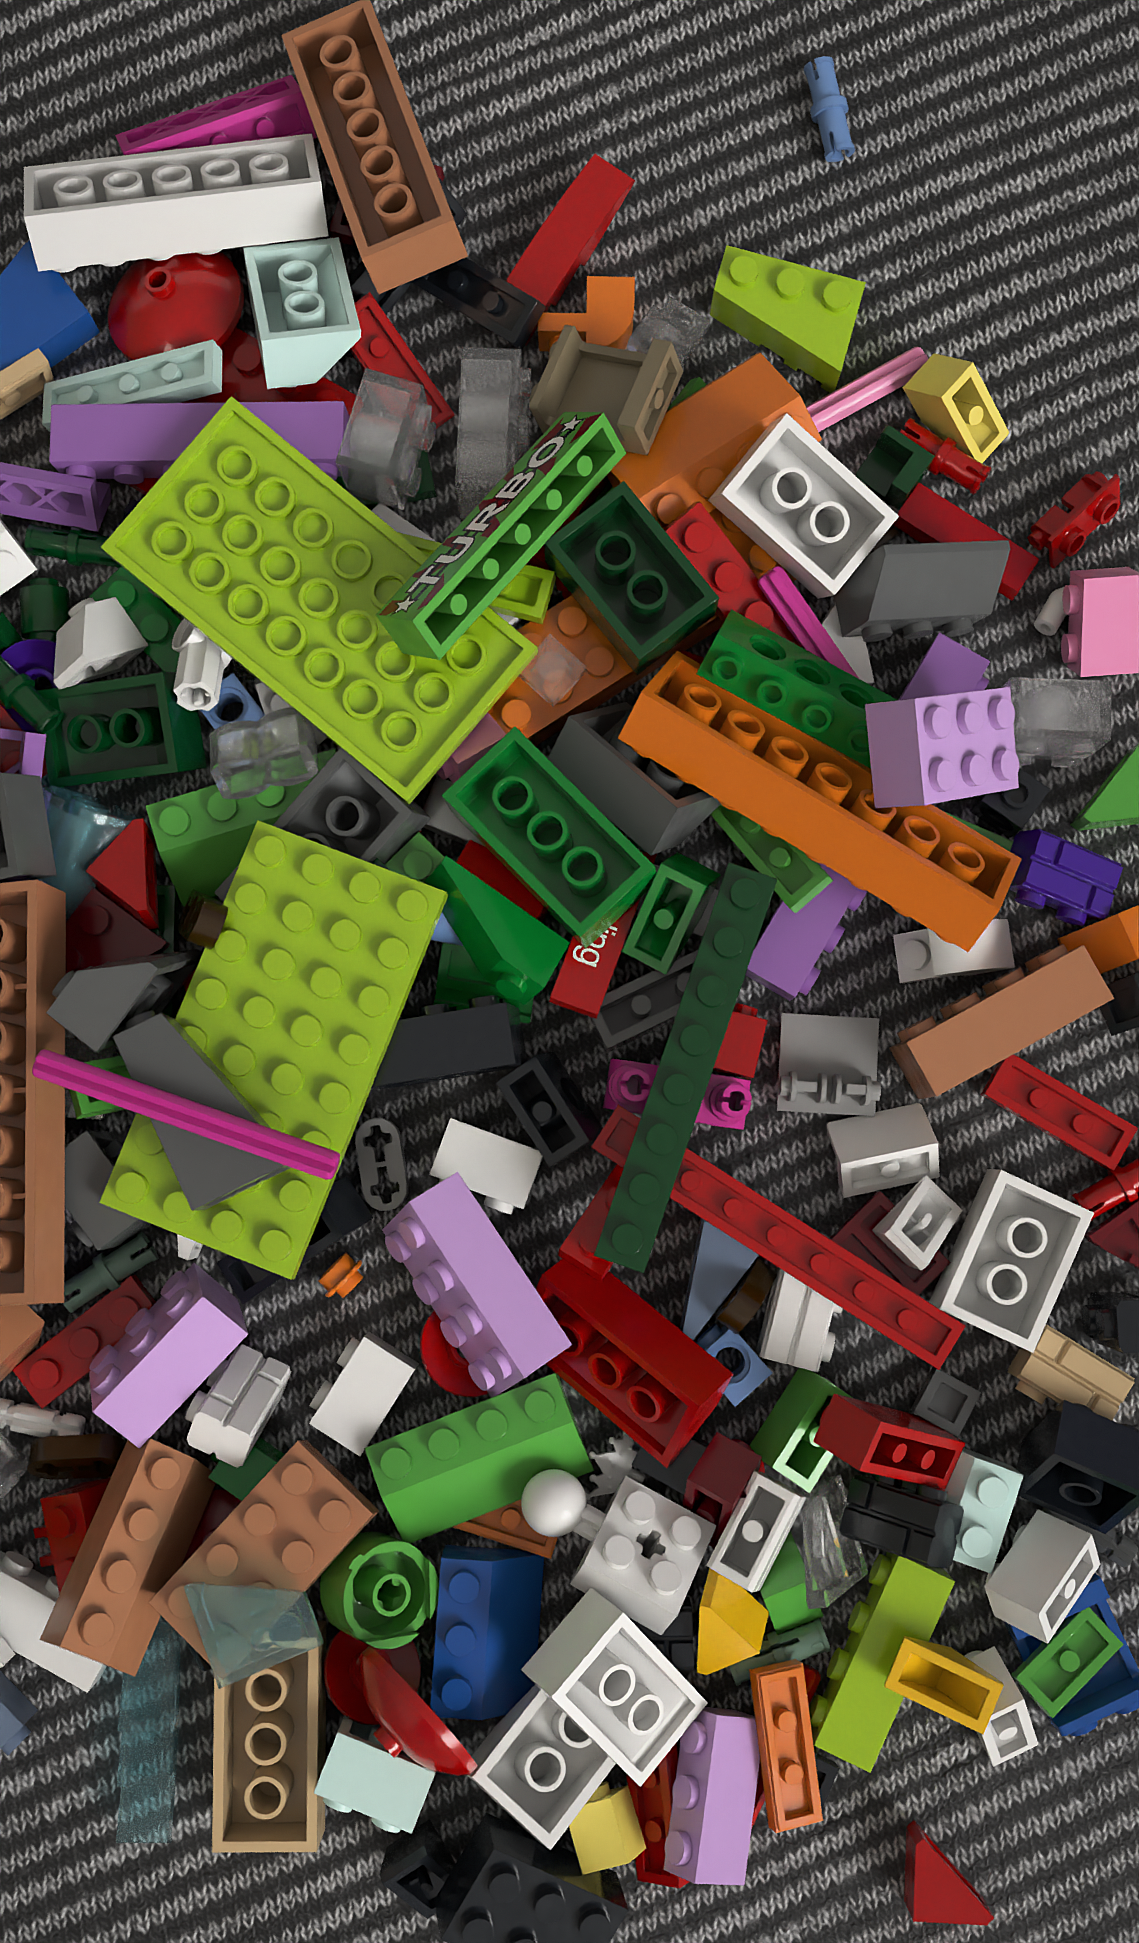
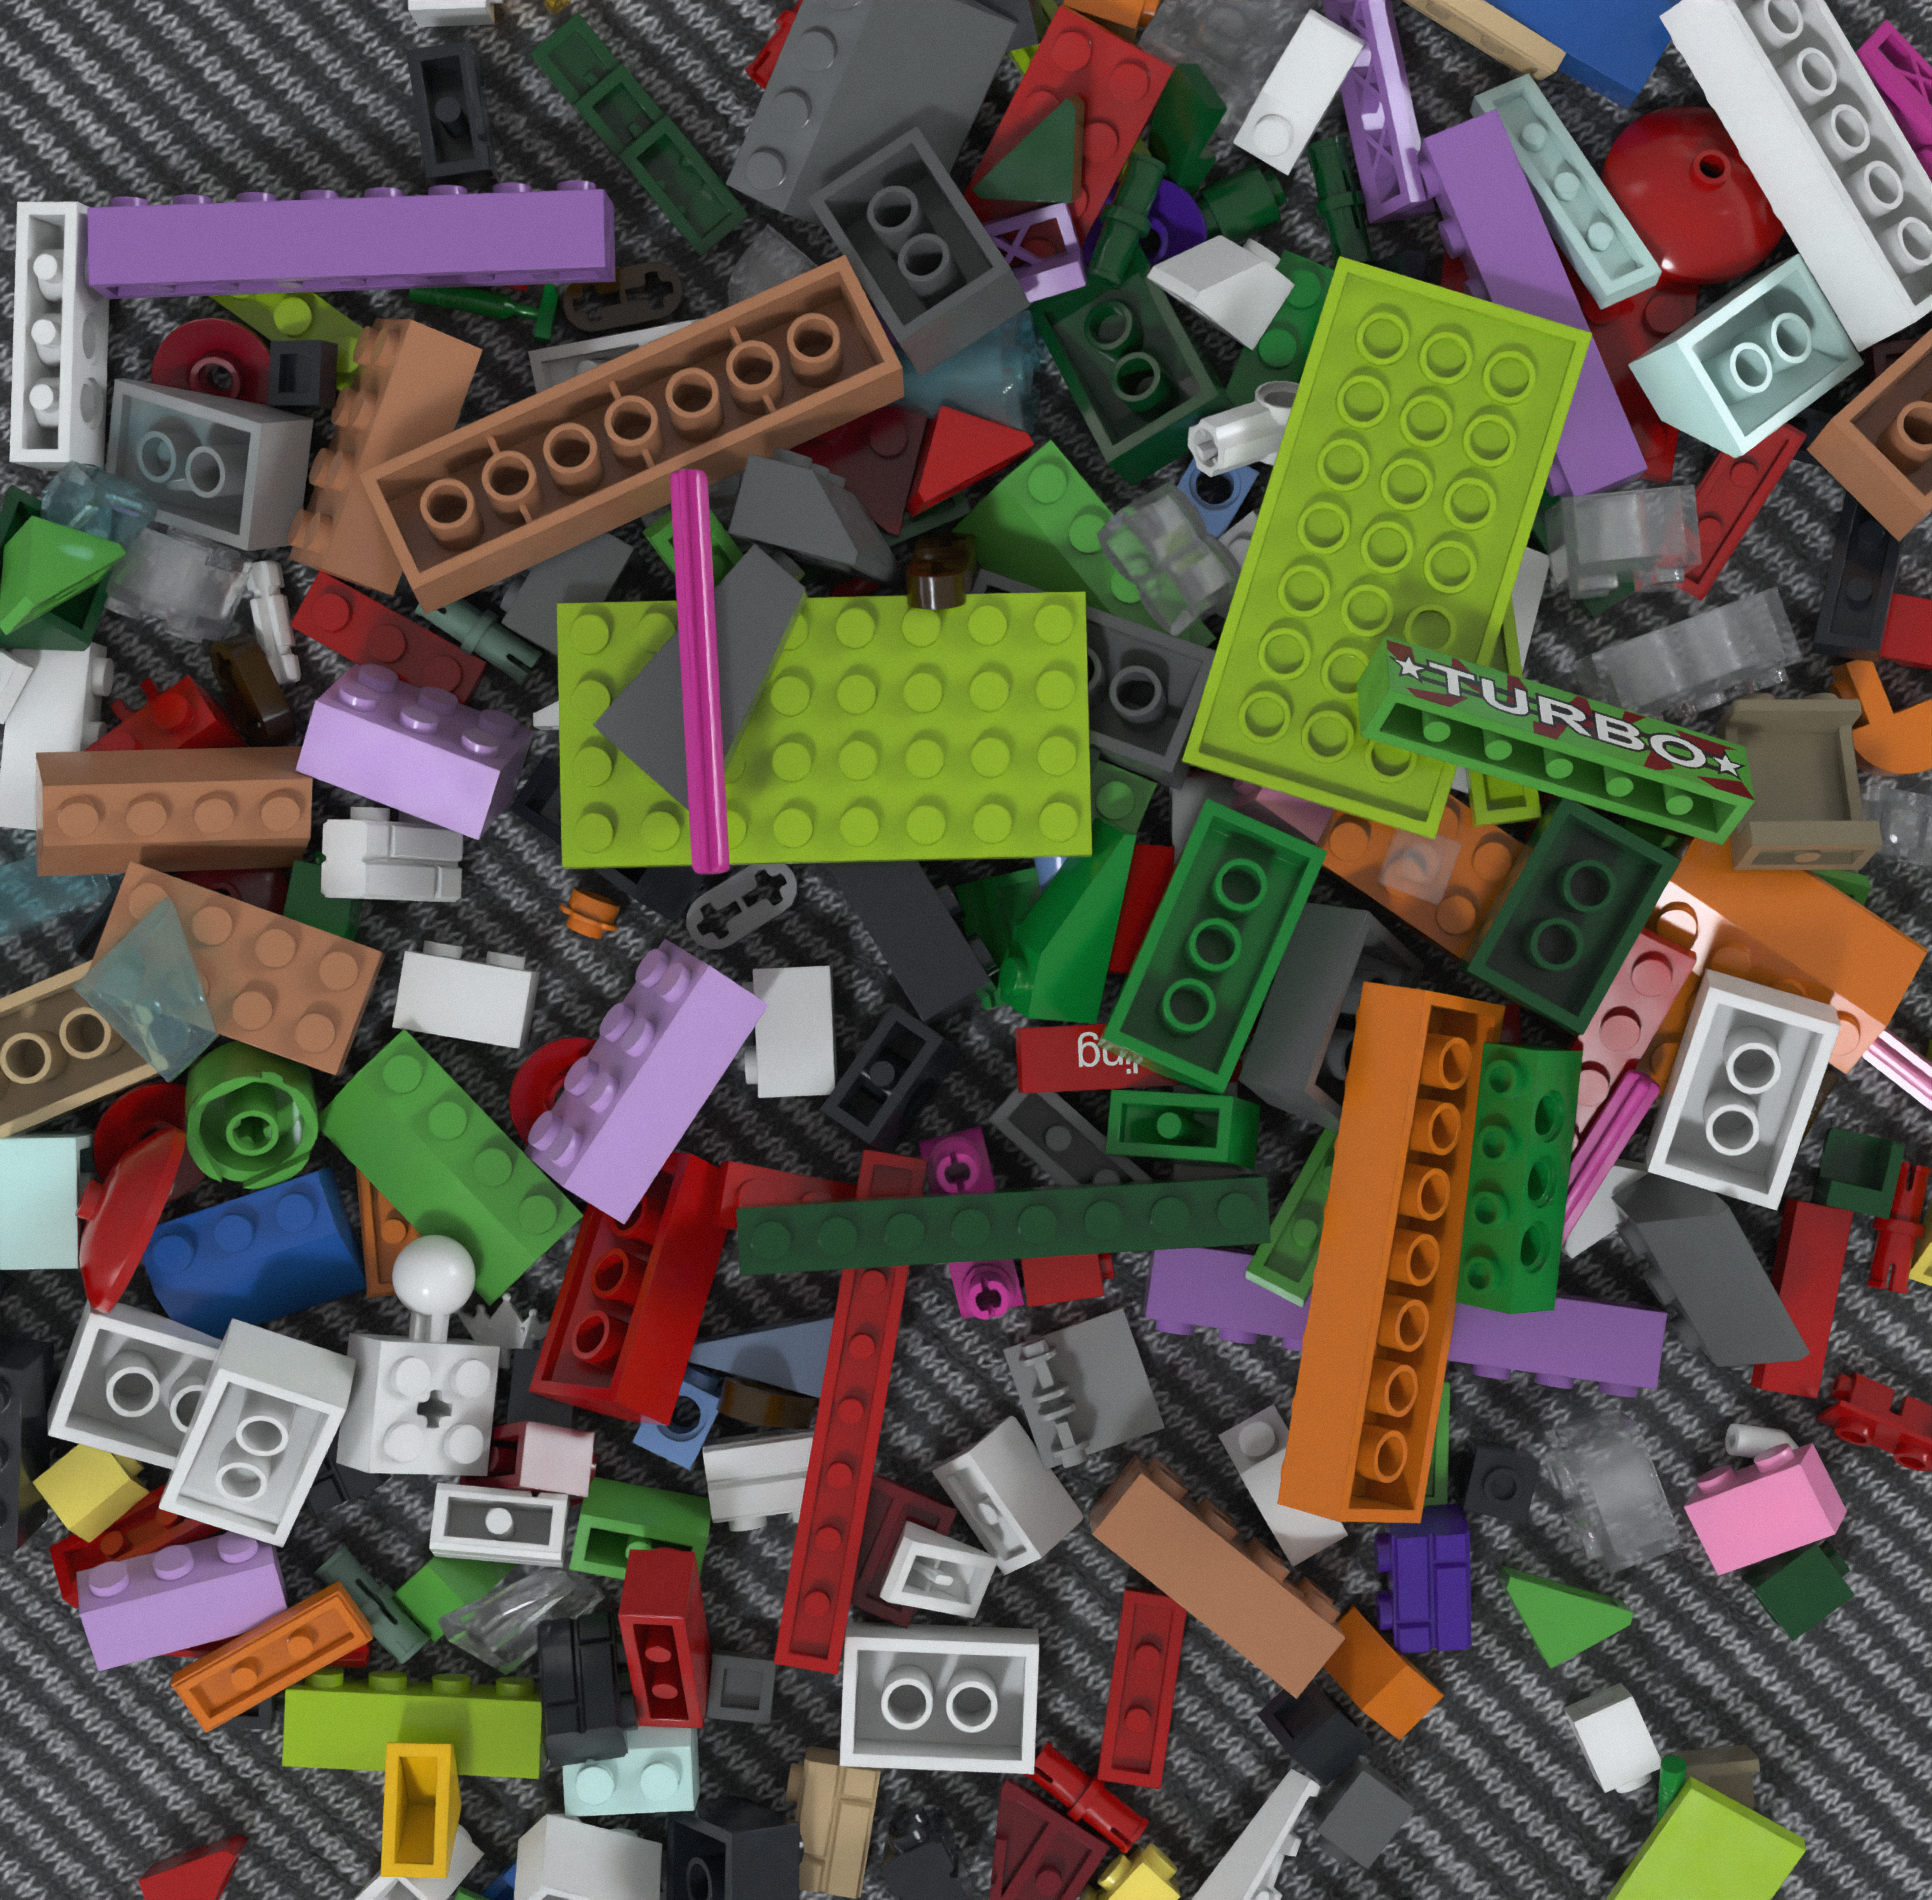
camera: 65 degrees right, 5 degrees up
(729, 1624) = (380, 1536): yellow slope -> none
(942, 747) = (1512, 1375): lavender brick -> none

